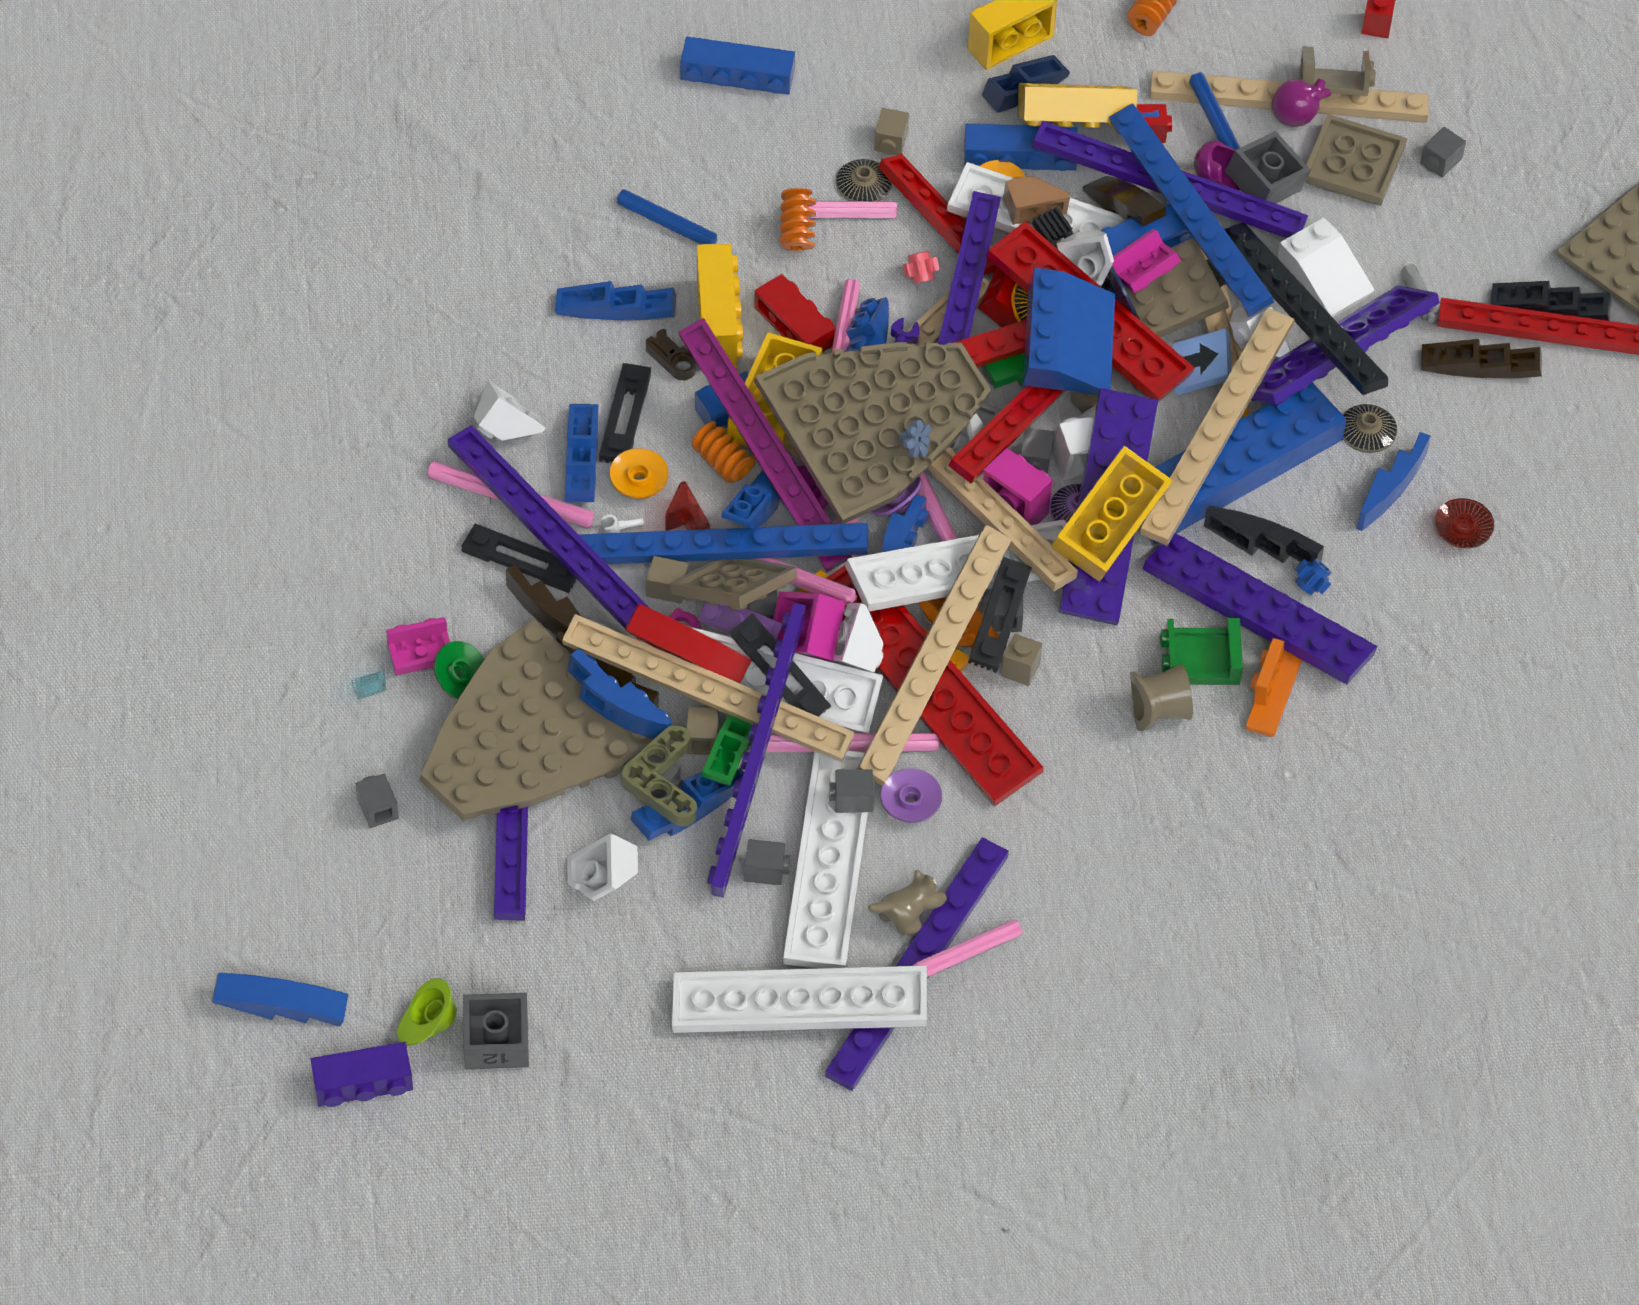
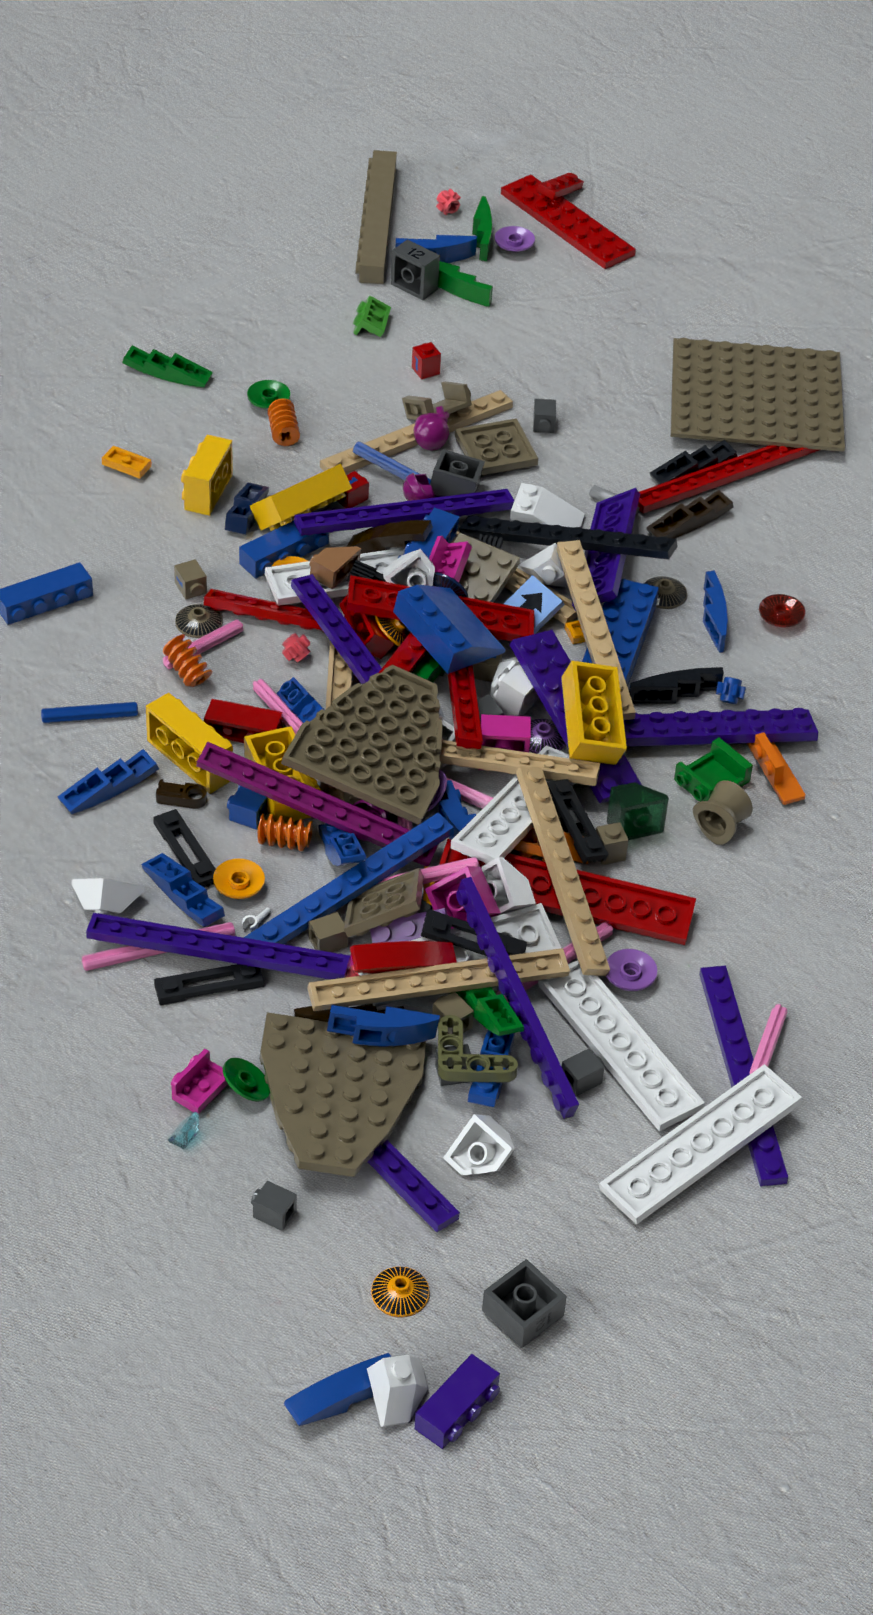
camera: 40 degrees left, 10 degrees down
(322, 1028) = (397, 1388): none -> white slope
(416, 960) = (396, 1300): none -> dish
(428, 1013) = (463, 1324): lime piece -> none
(539, 602) = (258, 1001): dark brown slope -> none
(685, 511) = (297, 882): clear red slope -> none
(852, 791) = (599, 986): dark grey brick -> none
(901, 336) = (330, 694): dark purple bar -> none
(908, 903) = (704, 1035): dark tan animal -> none
(916, 439) = (424, 738): sand blue plant -> none
(1071, 642) = (637, 809): none -> clear green slope
(1191, 210) = (446, 514): blue plate -> none

